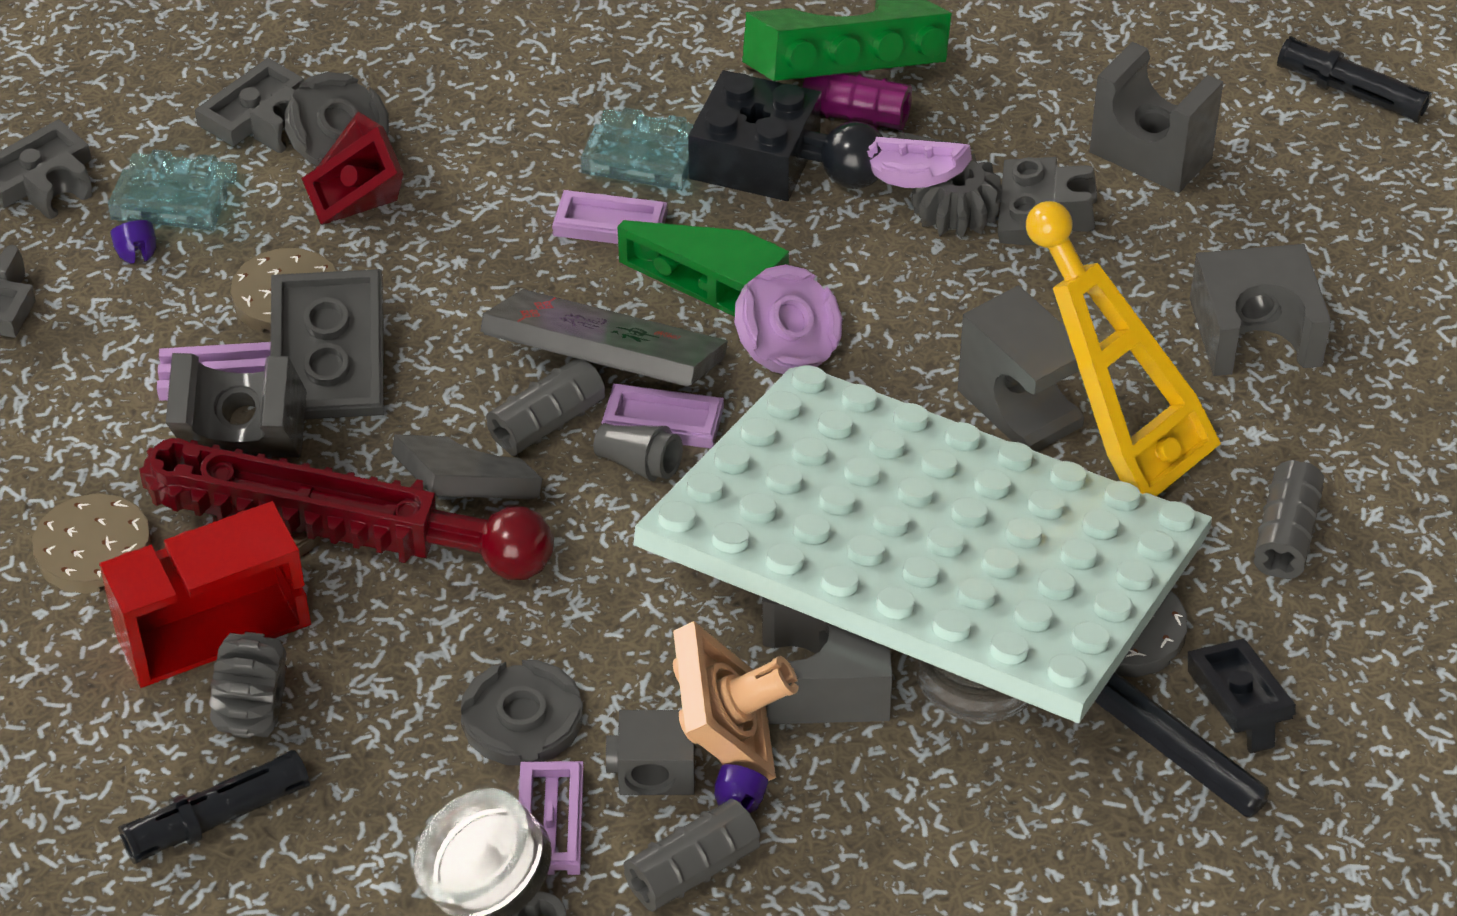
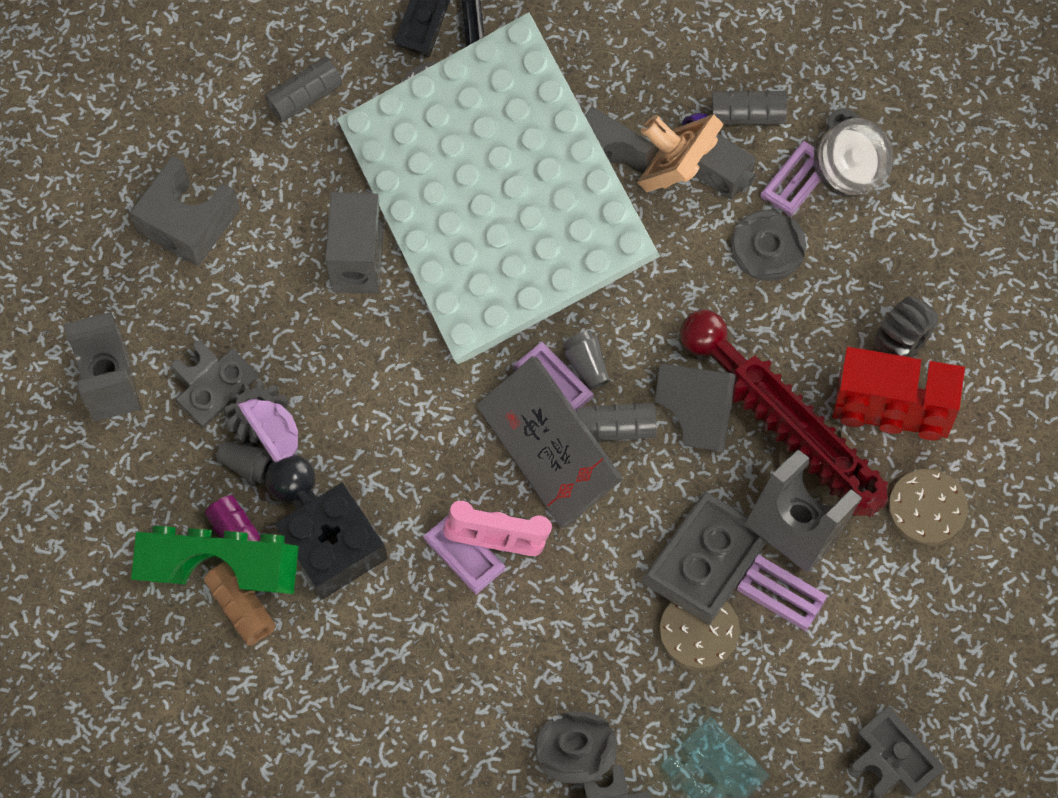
camera: 140 degrees left, 20 degrees up
(132, 235) = (771, 732): dark purple hinge -> none
(192, 815) = (960, 286): black pin -> none
(355, 173) = (598, 687): dark red slope -> none
(583, 226) = (496, 530): none -> bright pink plate
(639, 149) = (409, 586): clear light blue plate -> none
(697, 259) = (438, 452): green slope -> none
(787, 319) = (439, 381): lavender tile -> none
(1175, 437) = (320, 182): yellow plate -> none

